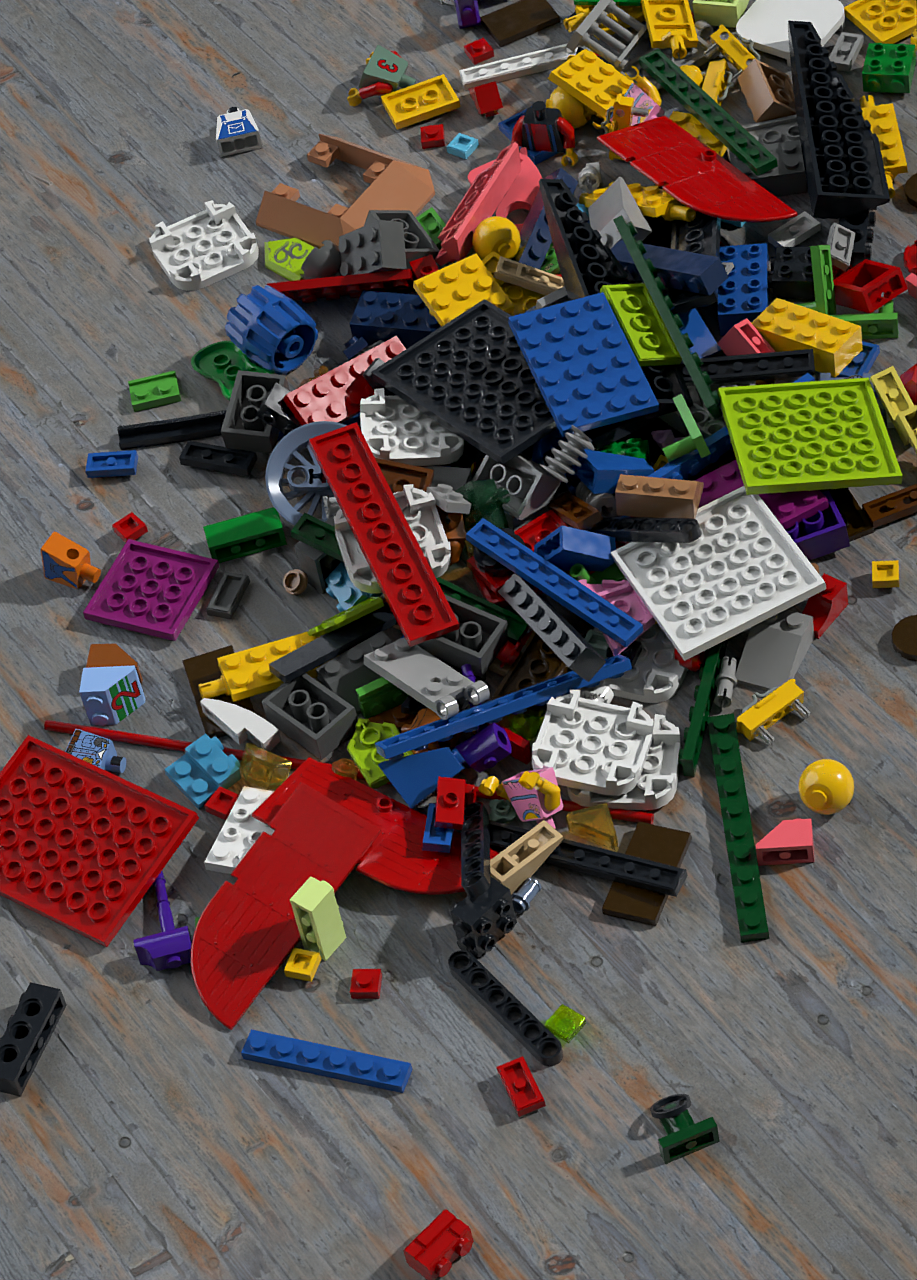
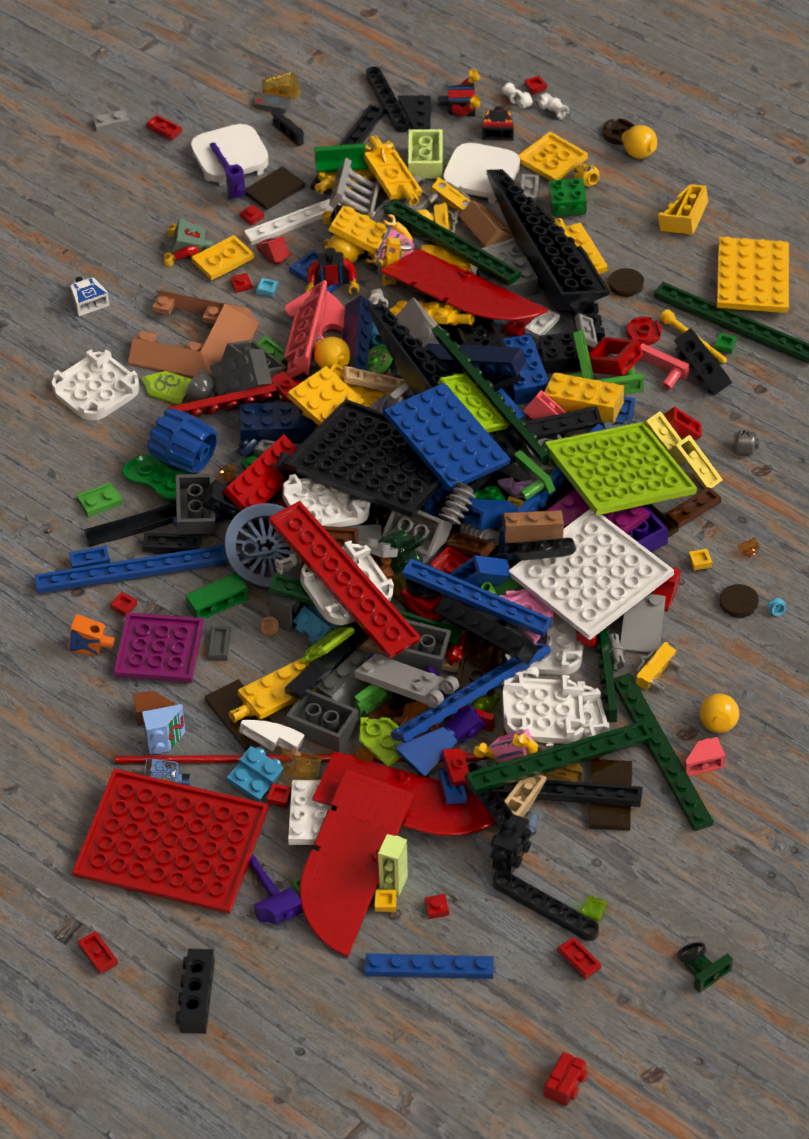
camera: 25 degrees left, 0 degrees up
(150, 484) = (130, 569): none -> blue plate
(584, 811) = (557, 757): none -> dark green plate
(758, 231) = (517, 327): none -> red plate

